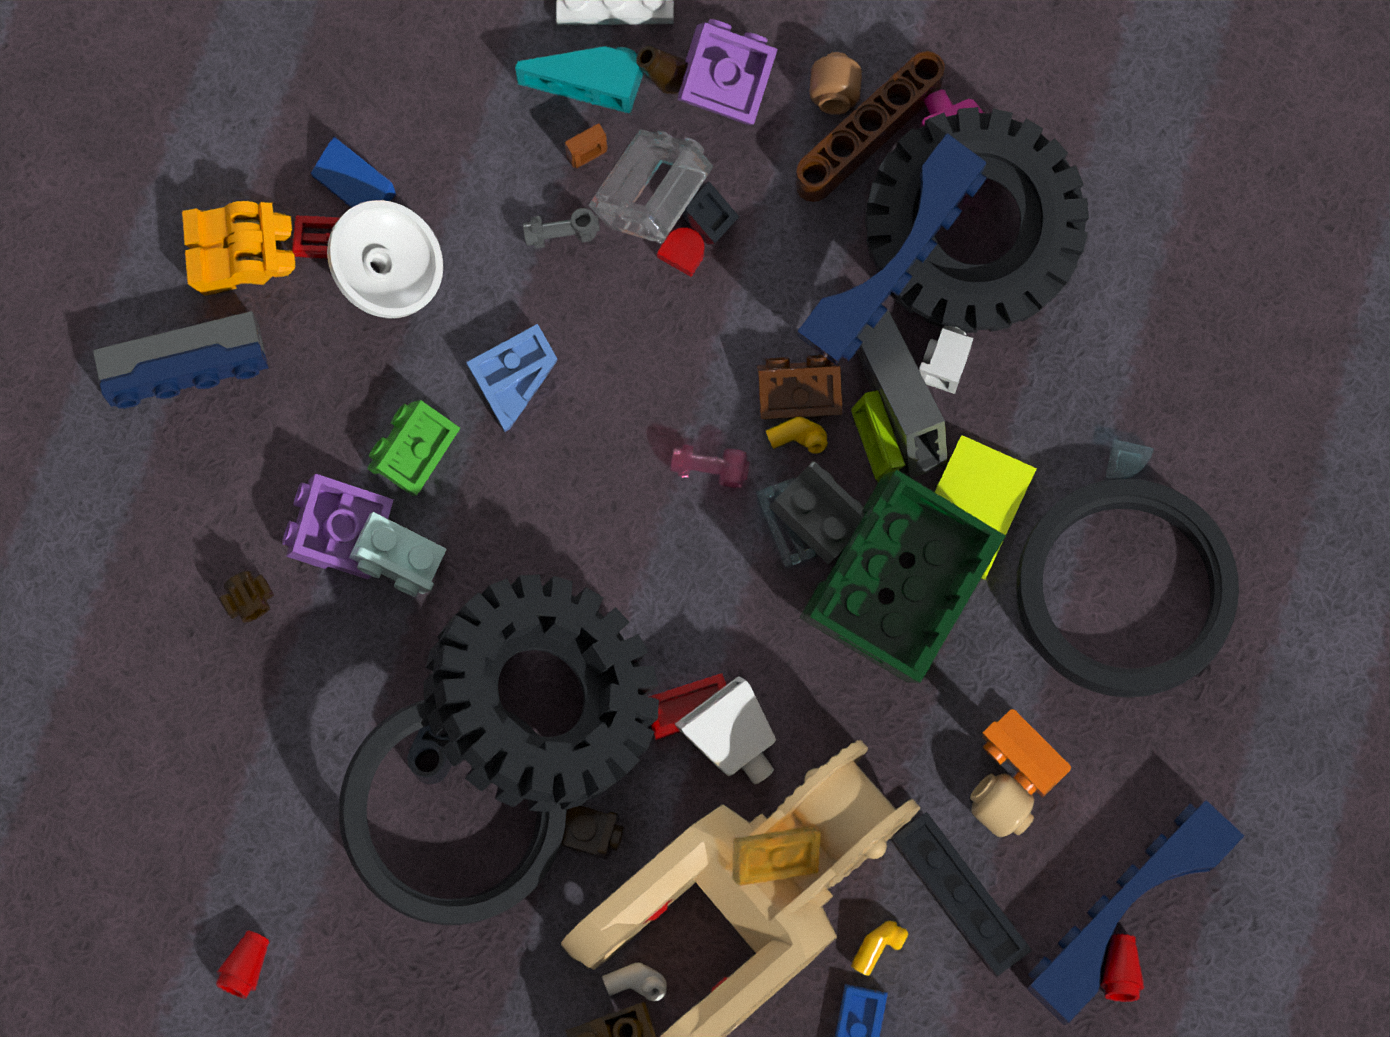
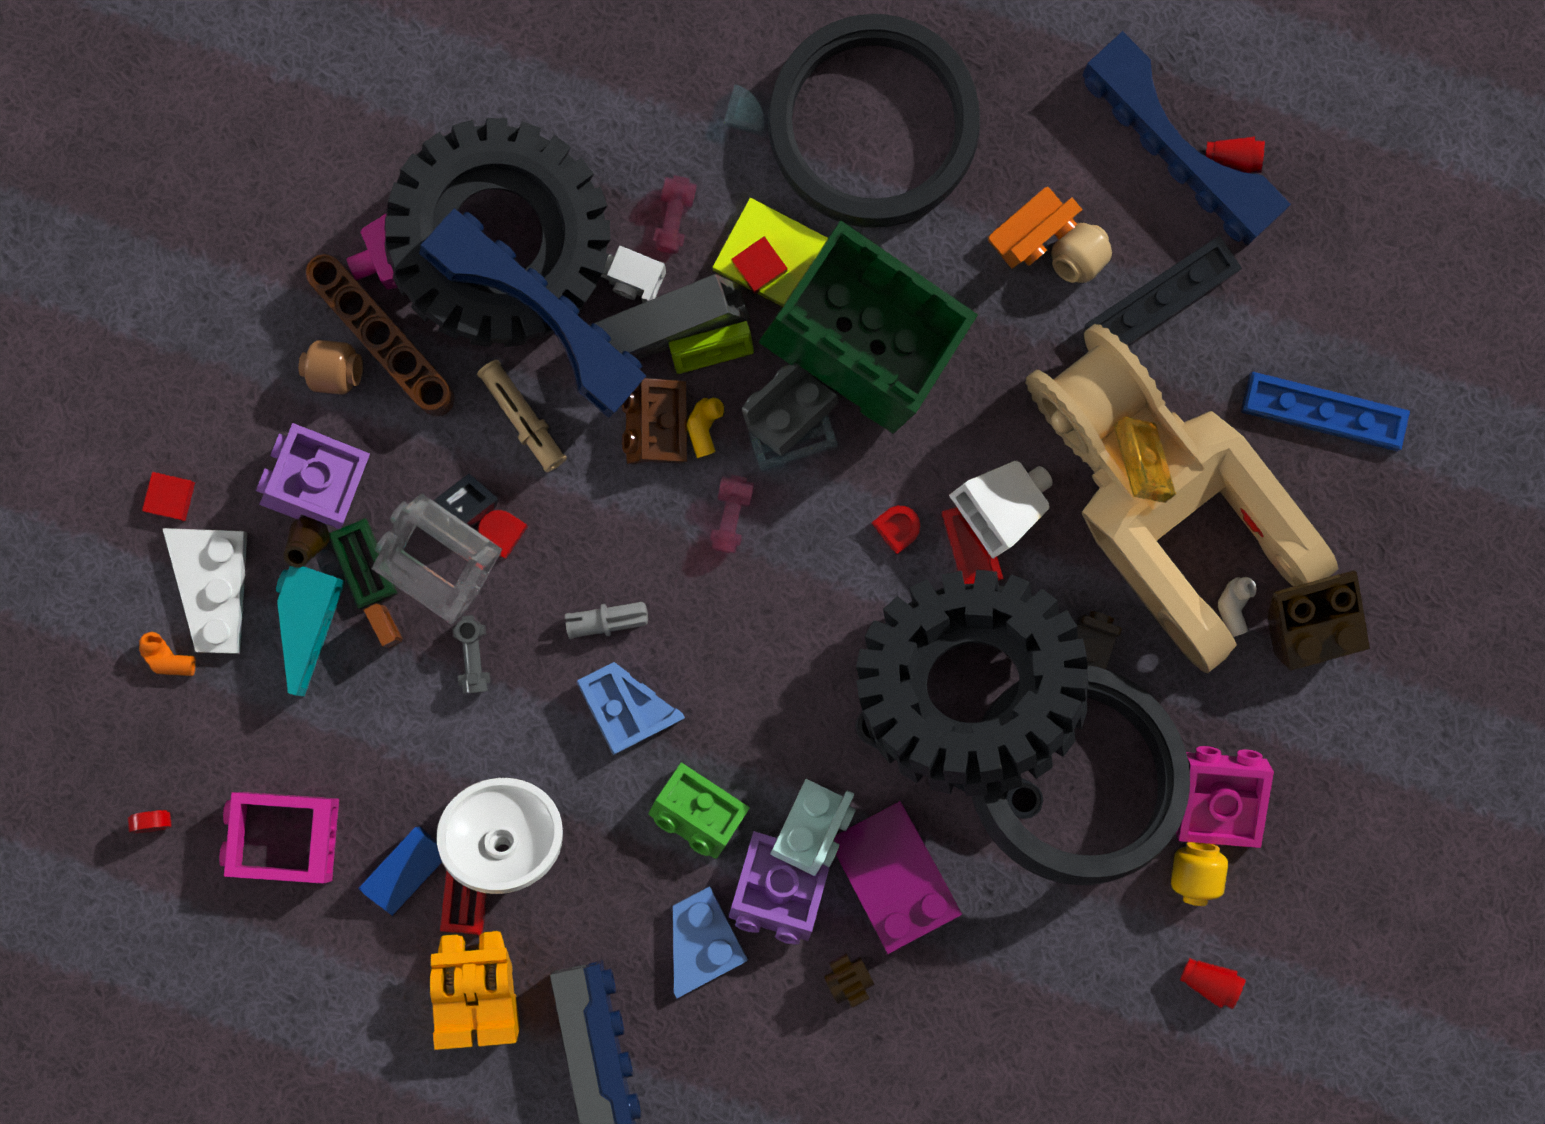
camera: 90 degrees left, 10 degrees up
(285, 458) = (702, 942): none -> medium blue wing
(348, 638) = (895, 877): none -> magenta slope
(355, 946) = (1199, 873): none -> yellow head
(382, 103) = (322, 837): none -> dark pink window
(433, 969) = (1226, 798): none -> dark pink plate
(599, 351) = (606, 619): none -> light grey axle
(640, 113) = (349, 531): none -> dark green tile
(704, 631) = (898, 527): none -> red tile
(786, 271) = (548, 453): none -> tan pin
(874, 944) = (1207, 380): yellow arm -> none
(965, 478) = (759, 265): none -> red tile
(1035, 398) = (677, 193): none -> clear pink bar

